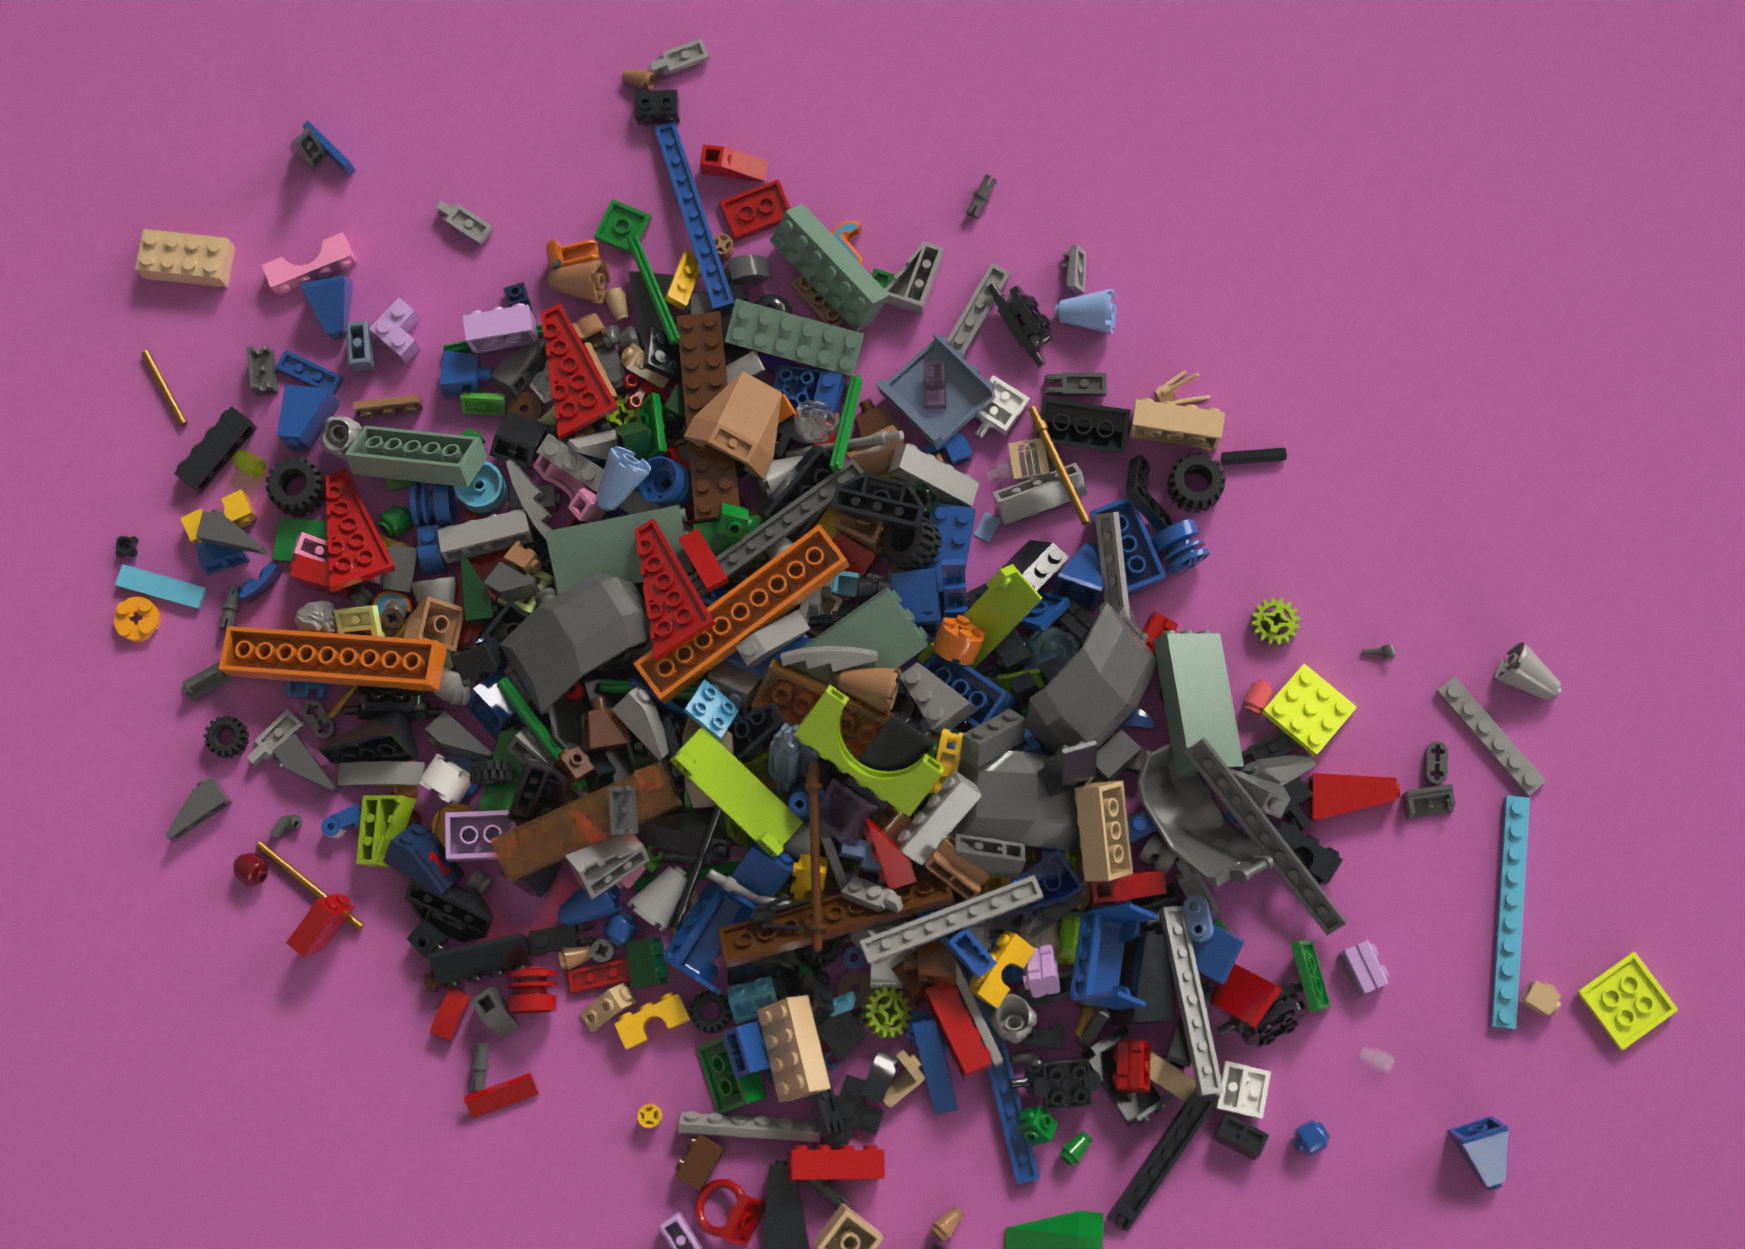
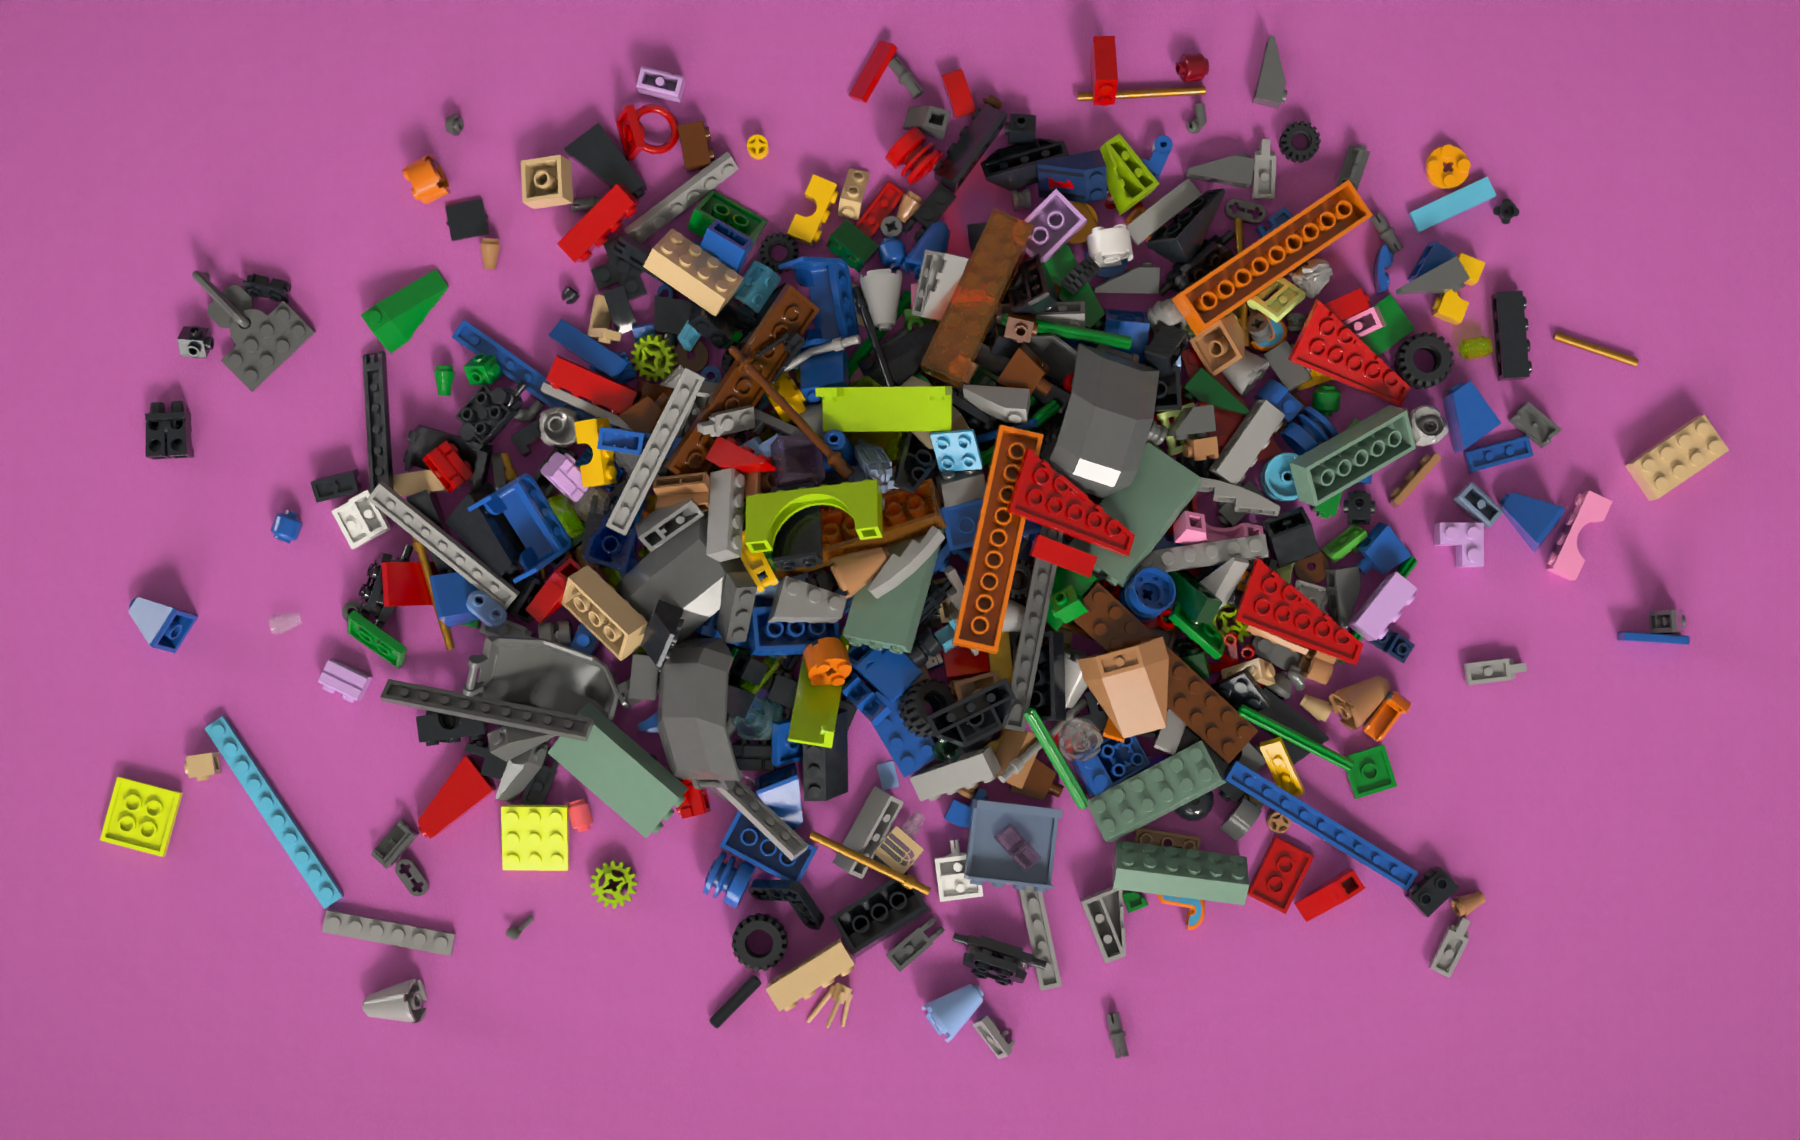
camera: 135 degrees right, 10 degrees up
(455, 415) = (1359, 507): none -> black brick
(620, 477) = (1181, 567): light blue cone -> none
(623, 810) = (954, 323): dark grey hinge -> none
(772, 638) = (959, 541): light grey slope -> none
(875, 1043) = (643, 330): none -> blue tile
(909, 1127) = (571, 294): none -> black hinge
(1224, 990) = (427, 571): none -> pearl gold bar
(1309, 1026) = (346, 608): none -> dark grey plate

